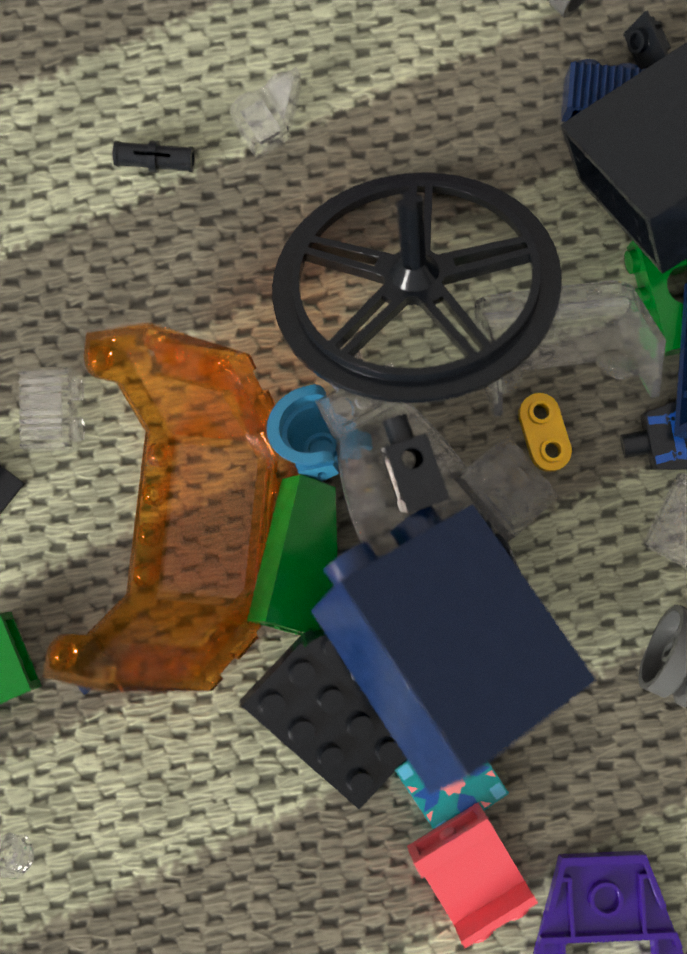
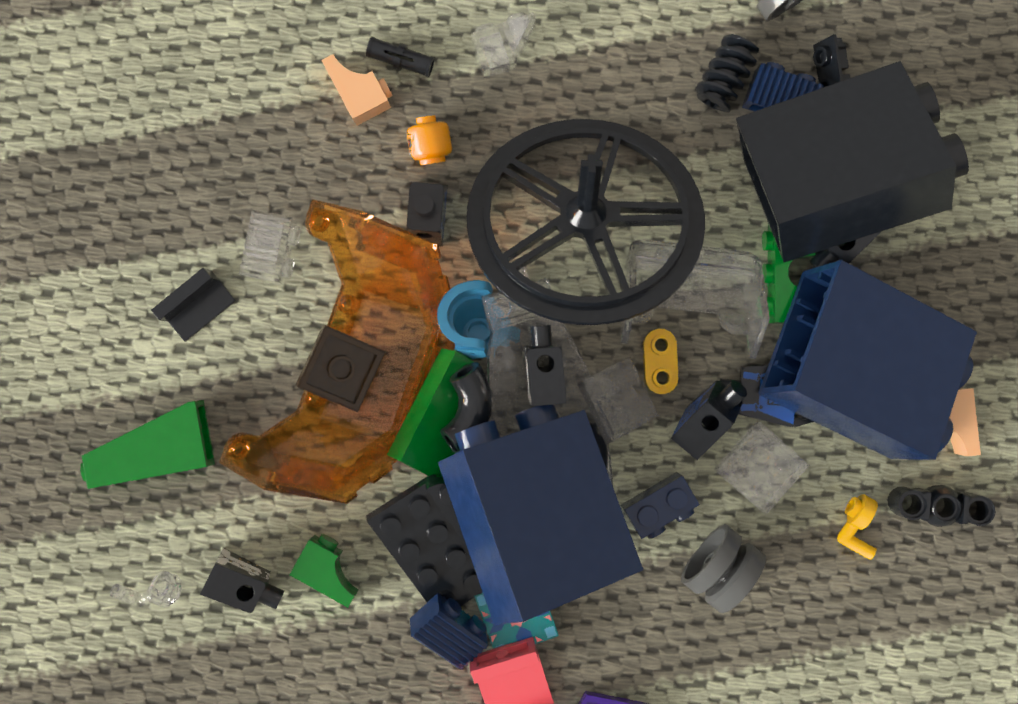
camera: 15 degrees right, 5 degrees up
(87, 828) = (228, 581): none -> black torso
(116, 205) = (361, 93): none -> light nougat arch
(166, 530) = (340, 368): none -> dark brown tile
(199, 782) = (322, 571): none -> green arch
(210, 241) = (429, 140): none -> light orange head
(226, 316) = (427, 211): none -> black torso
(335, 527) = (473, 402): none -> black cylinder
(374, 820) = (449, 631): none -> dark blue brick
(535, 83) = (725, 70): none -> black piece
(592, 601) = (660, 505): none -> dark blue brick
(623, 479) = (715, 409): none -> black torso

